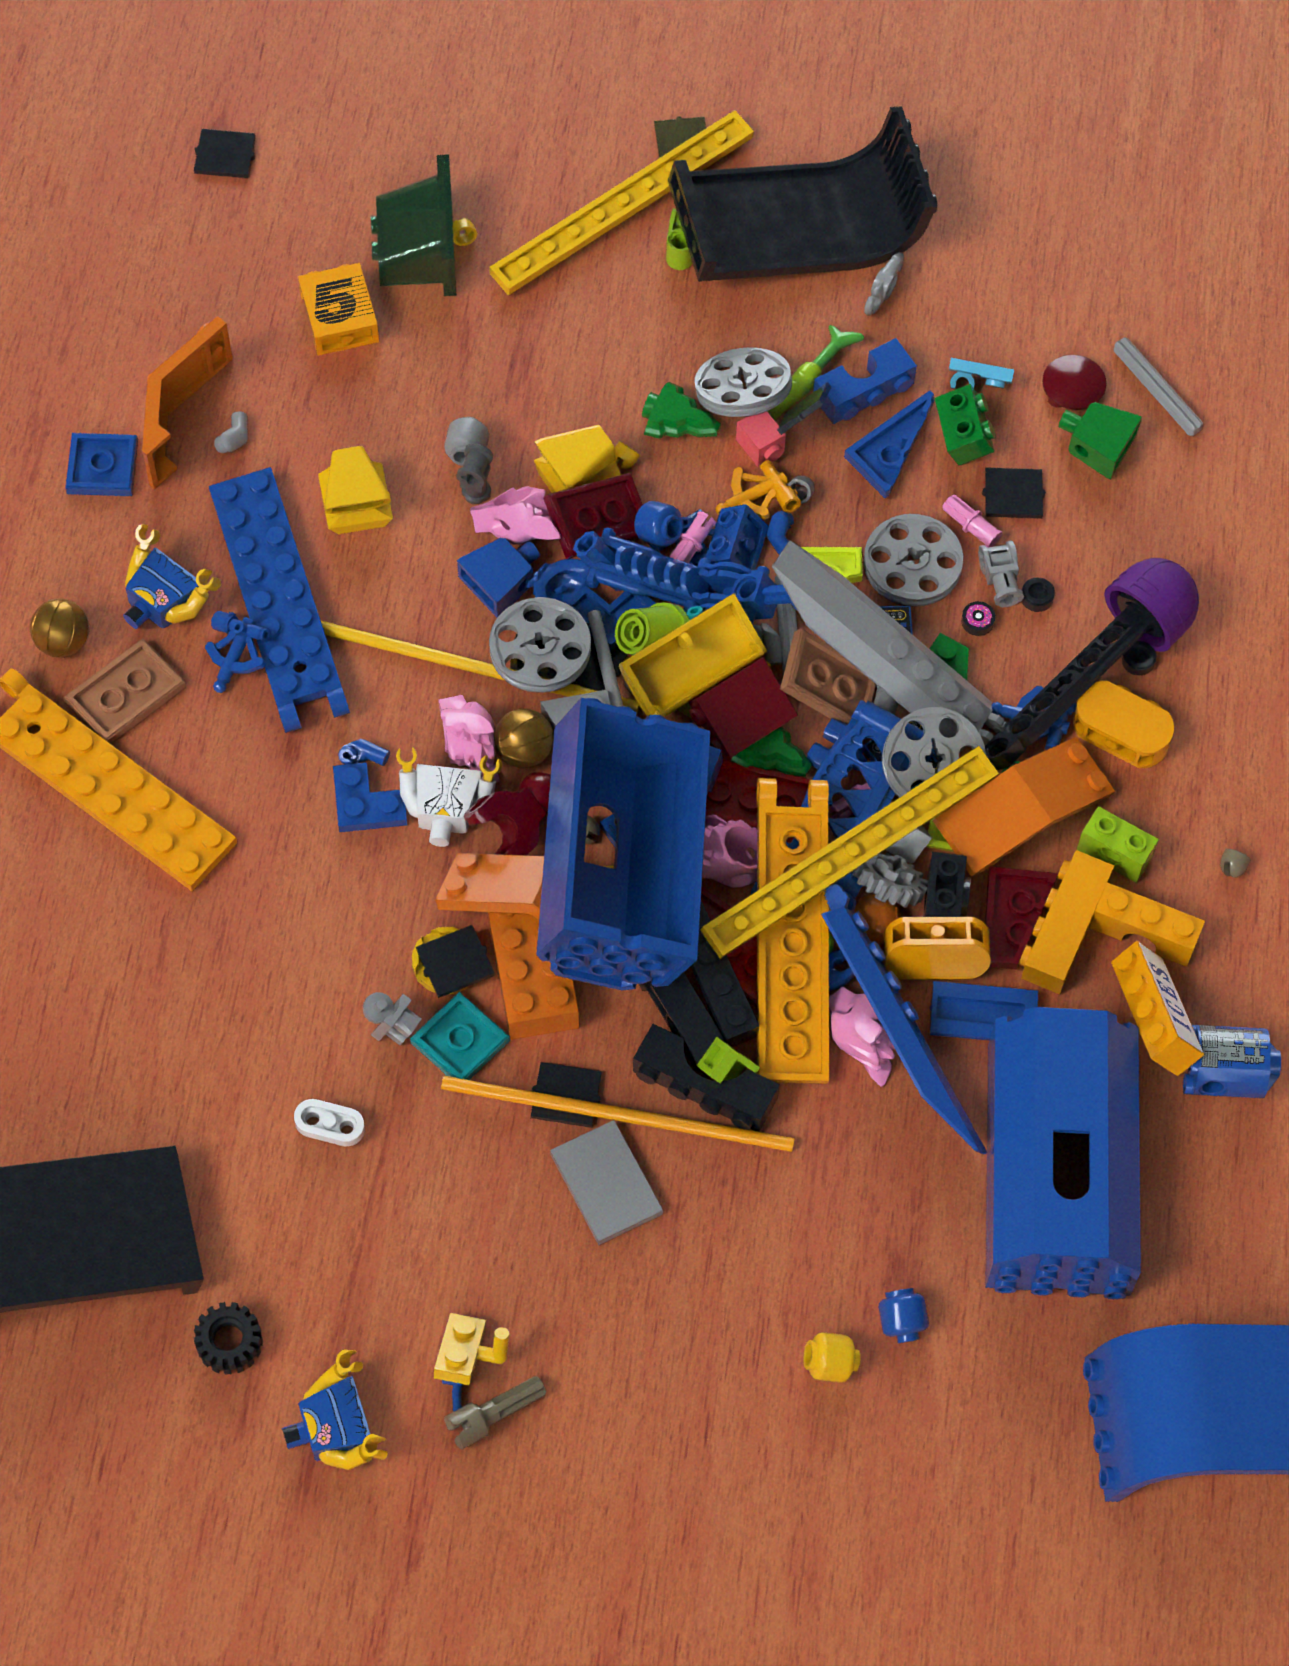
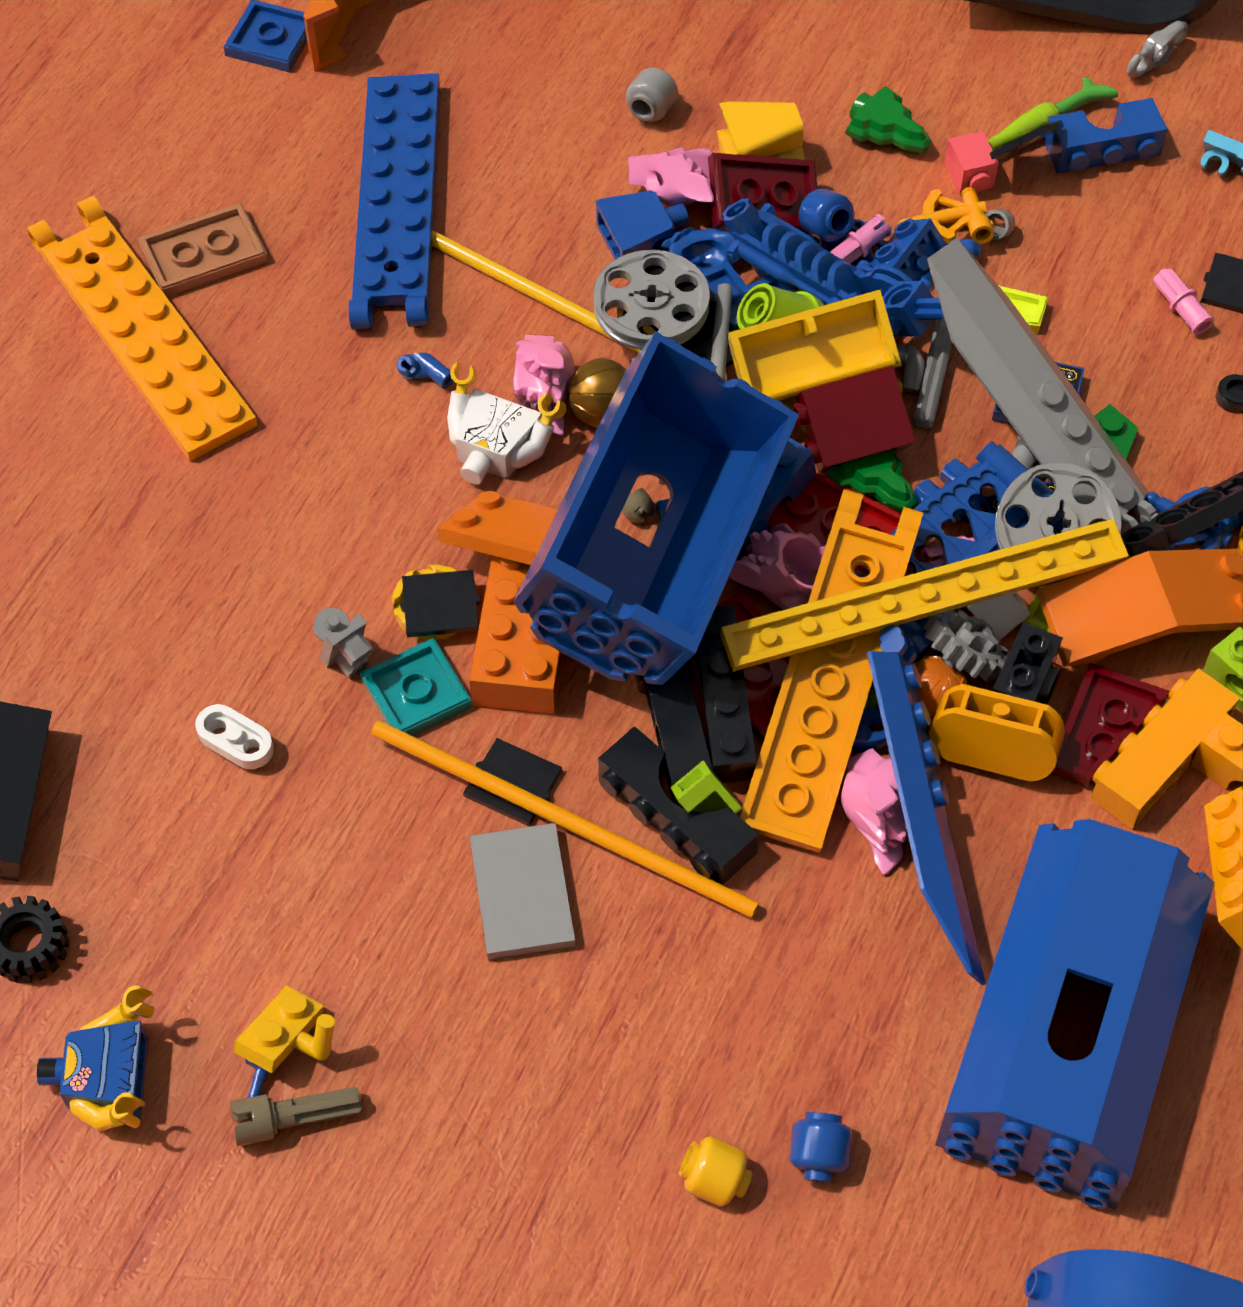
camera: 20 degrees right, 5 degrees down
(59, 628) = (157, 169): pearl gold piece -> none
(161, 587) = (278, 156): torso -> none
(235, 436) = (414, 40): light grey arm -> none
(241, 634) = (340, 222): blue piece -> none
(354, 492) = (514, 115): yellow piece -> none
(361, 809) = (402, 422): blue plate -> none
(475, 473) = (646, 121): dark grey connector -> none
(515, 813) = (553, 458): dark red piece -> none
(627, 454) = (817, 148): yellow hinge -> none
(731, 386) = (945, 104): light grey wedge -> none
(824, 678) = (958, 410): nougat tile -> none
(885, 449) = (1108, 207): blue wing -> none
(918, 548) = (1113, 314): light grey wedge -> none
(965, 424) = (1205, 200): green brick -> none
(972, 1009) = (1012, 813): blue piece -> none
(978, 618) = (1159, 401): tile -> none
(1001, 569) = (1200, 358): light grey connector -> none

